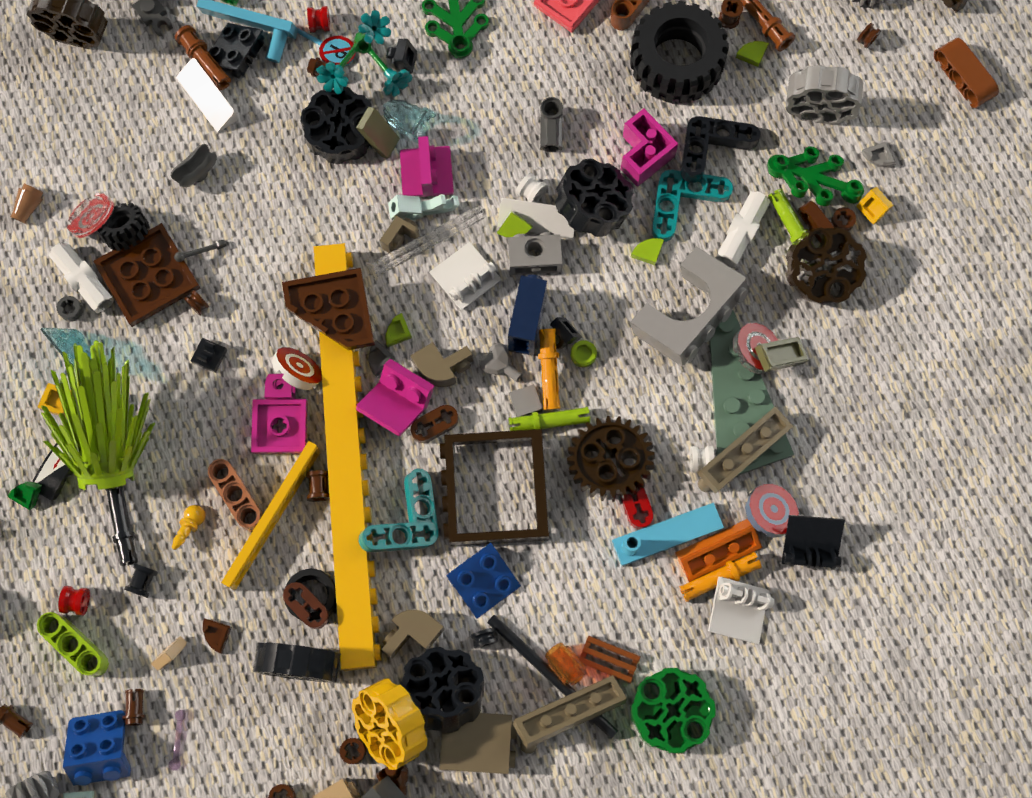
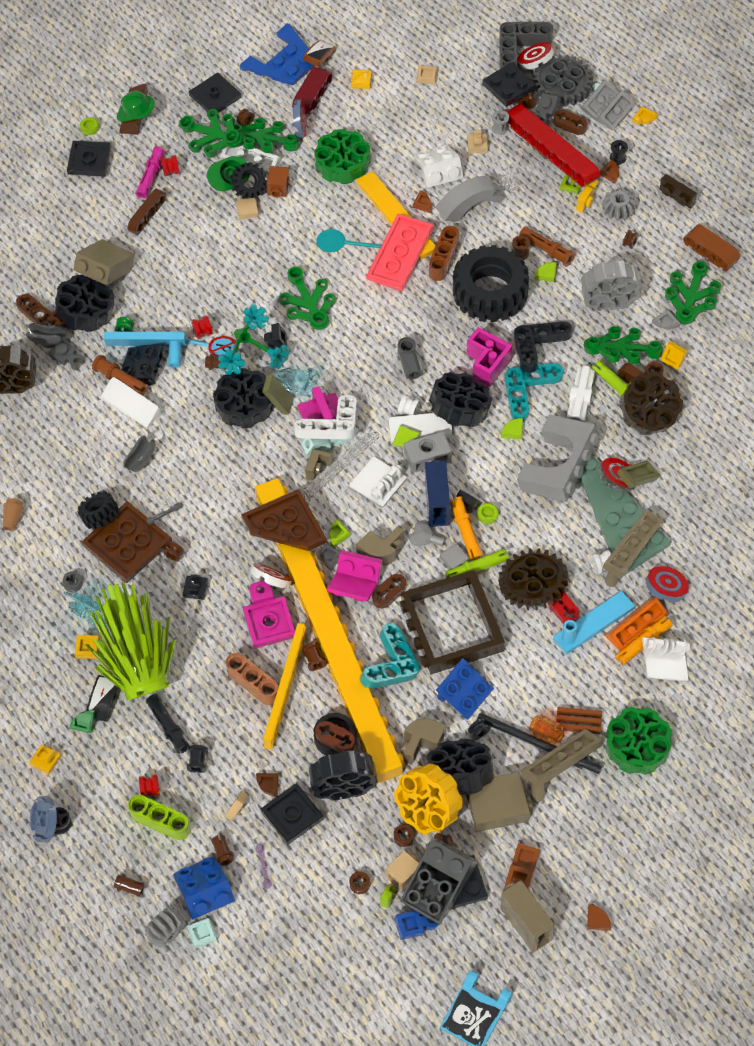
camera: 15 degrees left, 15 degrees down
(81, 277) = (75, 555): white piece -> none
(90, 215) = (69, 509): clear tile -> none
(193, 517) = (221, 708): yellow bar -> none
(229, 684) = (292, 814): none -> black plate
(436, 193) = (336, 428): none -> white beam
(813, 542) = (704, 596): black hinge -> none
(922, 129) = (692, 295): none -> green plant

